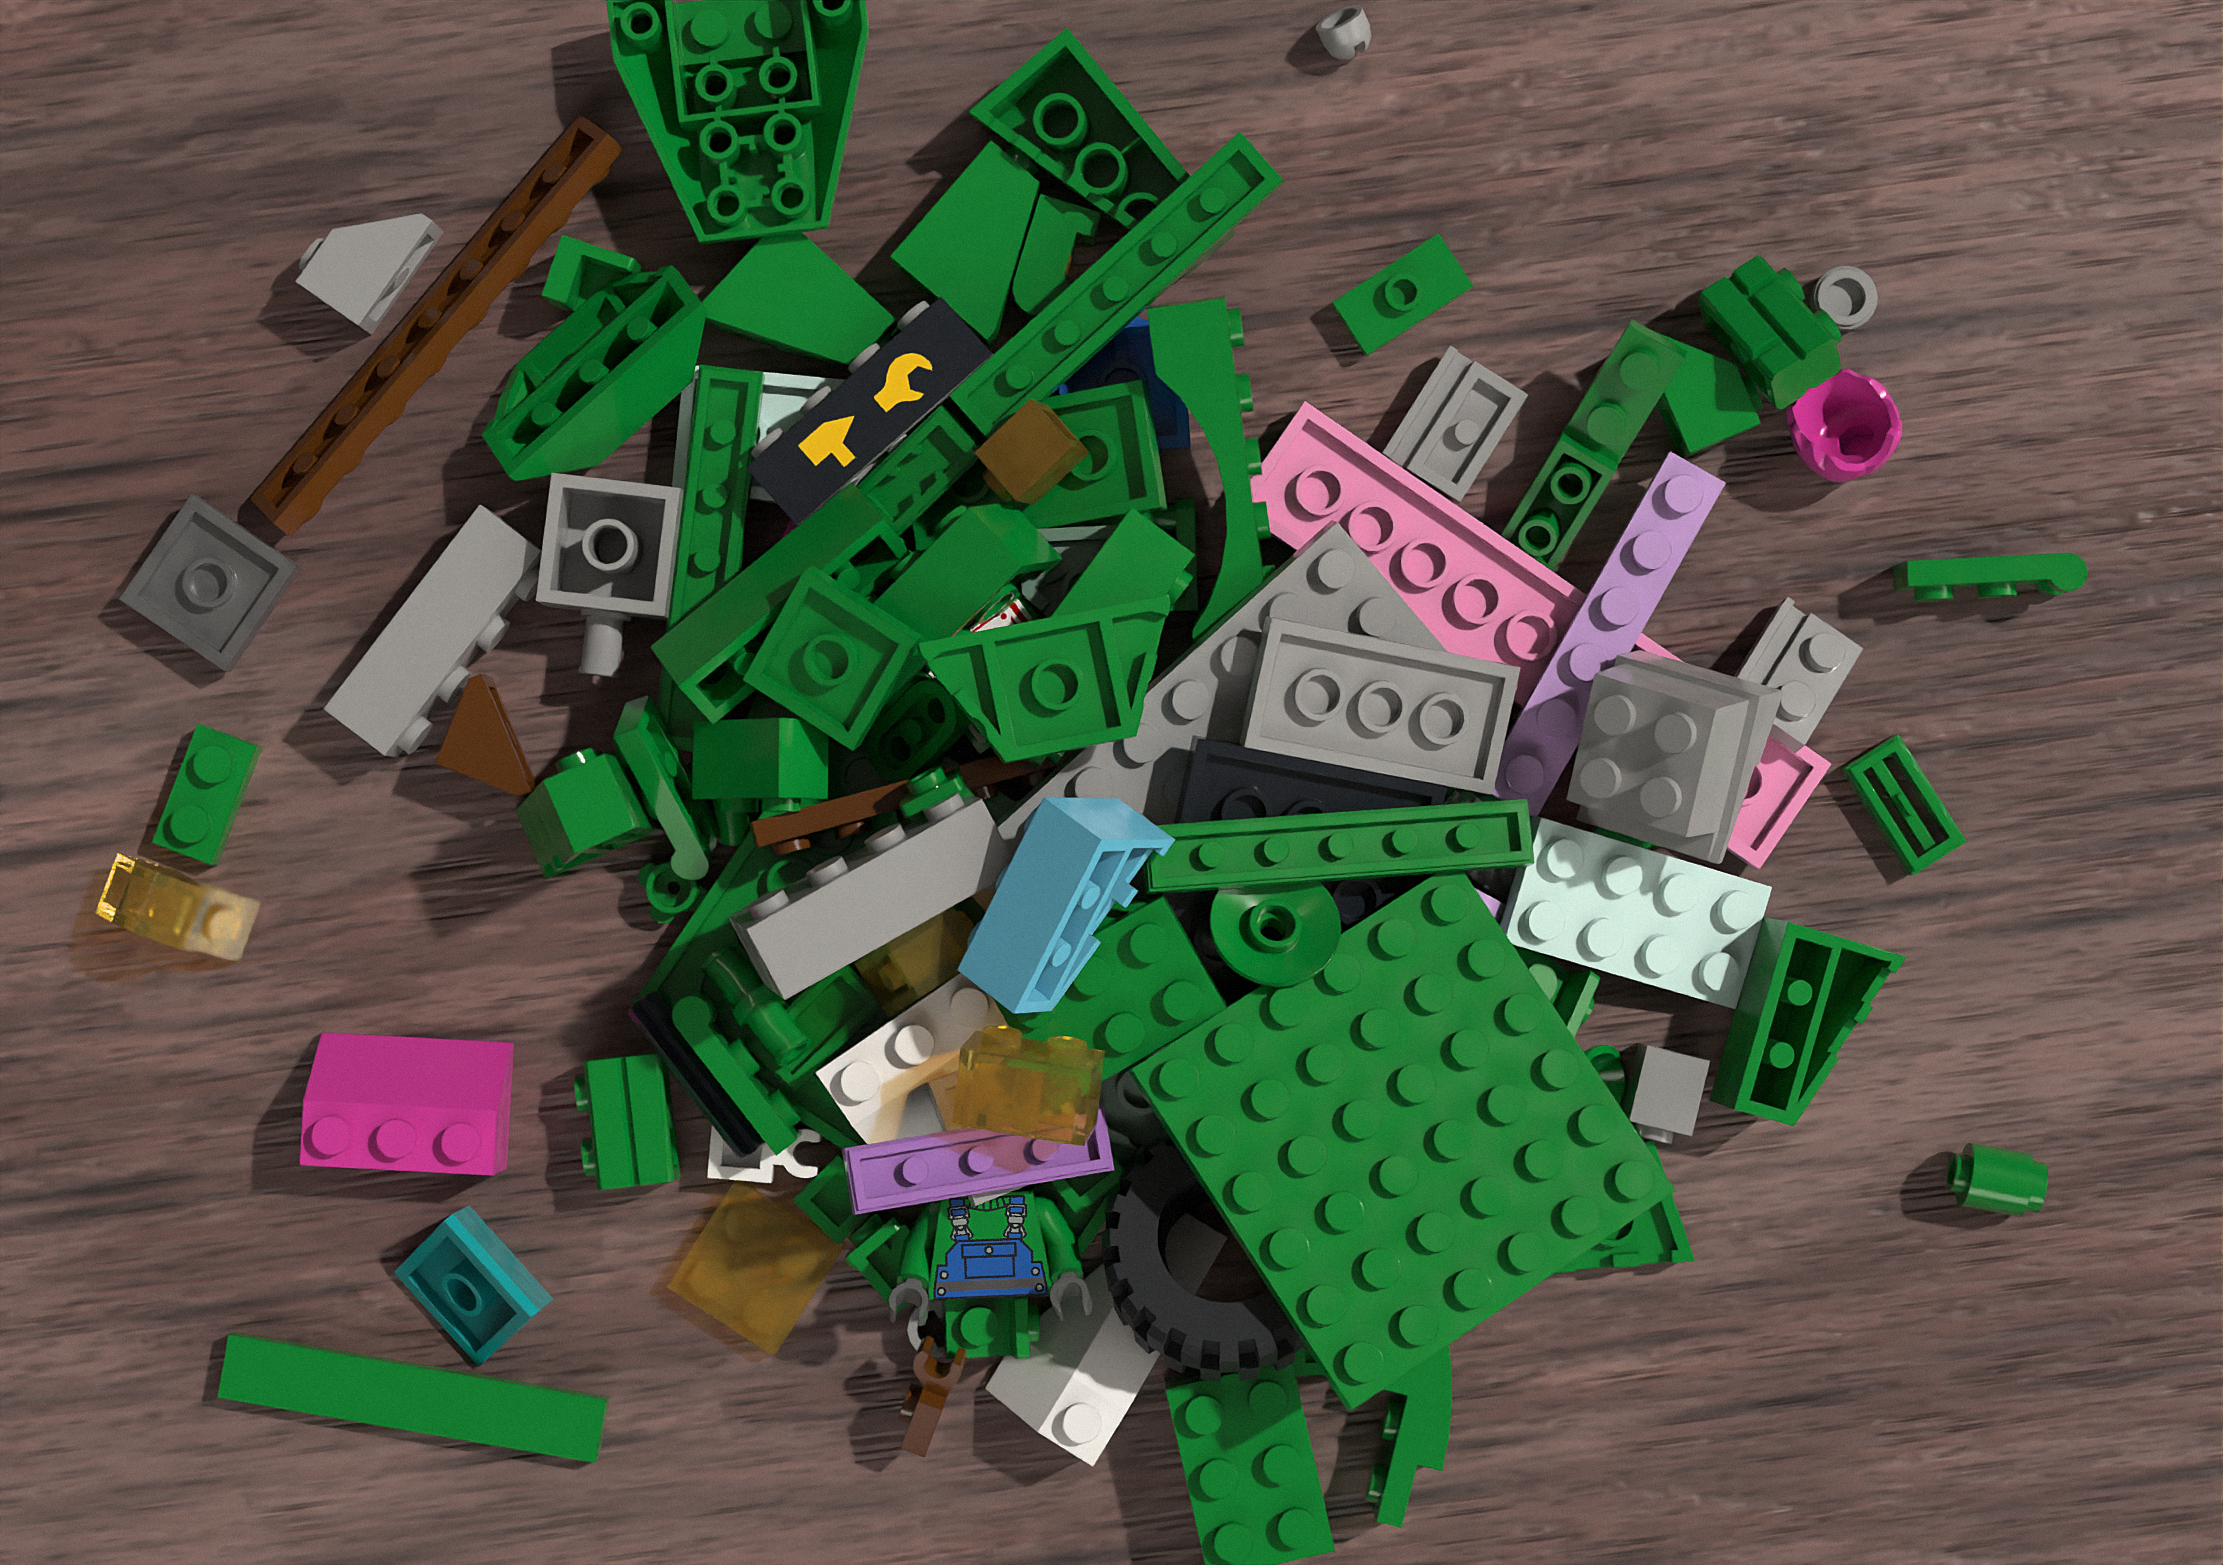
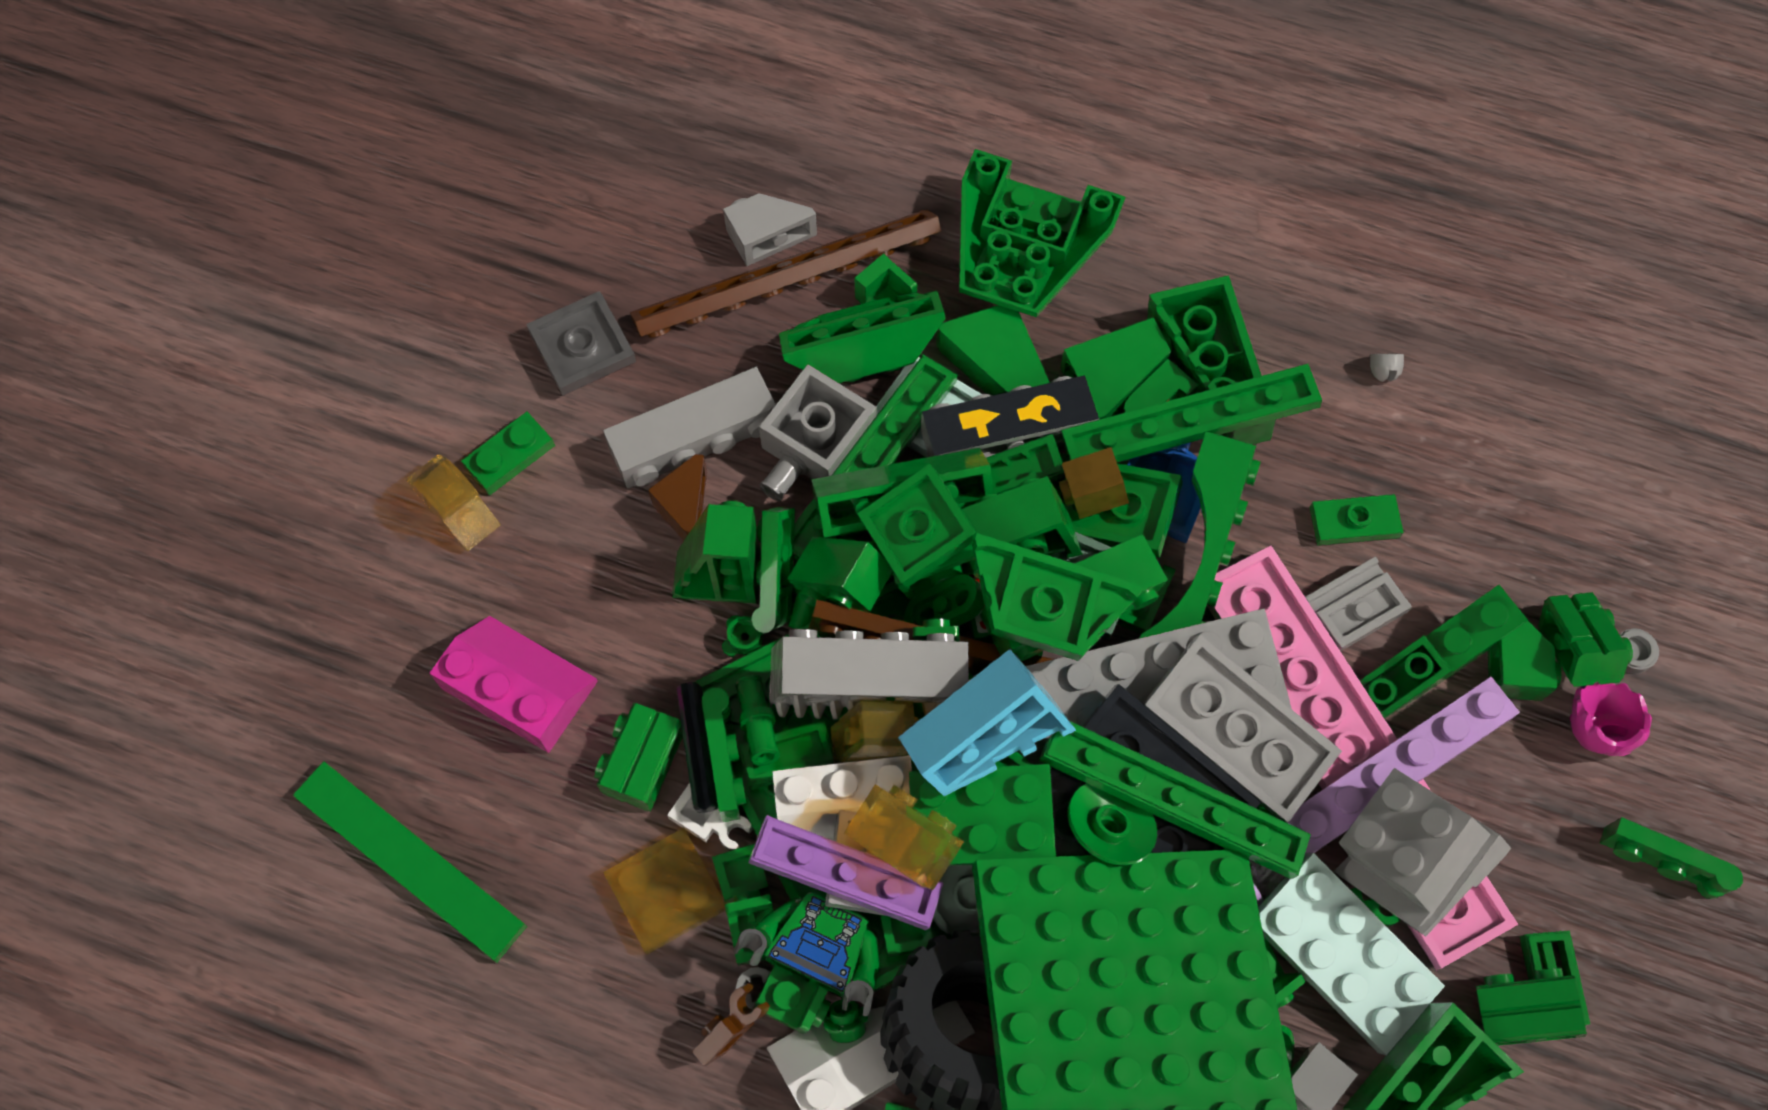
camera: 25 degrees right, 20 degrees down
(473, 1284) = (486, 807): teal slope -> none
(1075, 1325) = (845, 1025): none -> green plate
(1806, 663) = (1527, 862): light grey plate -> none
(1885, 869) = (1531, 1008): none -> green brick

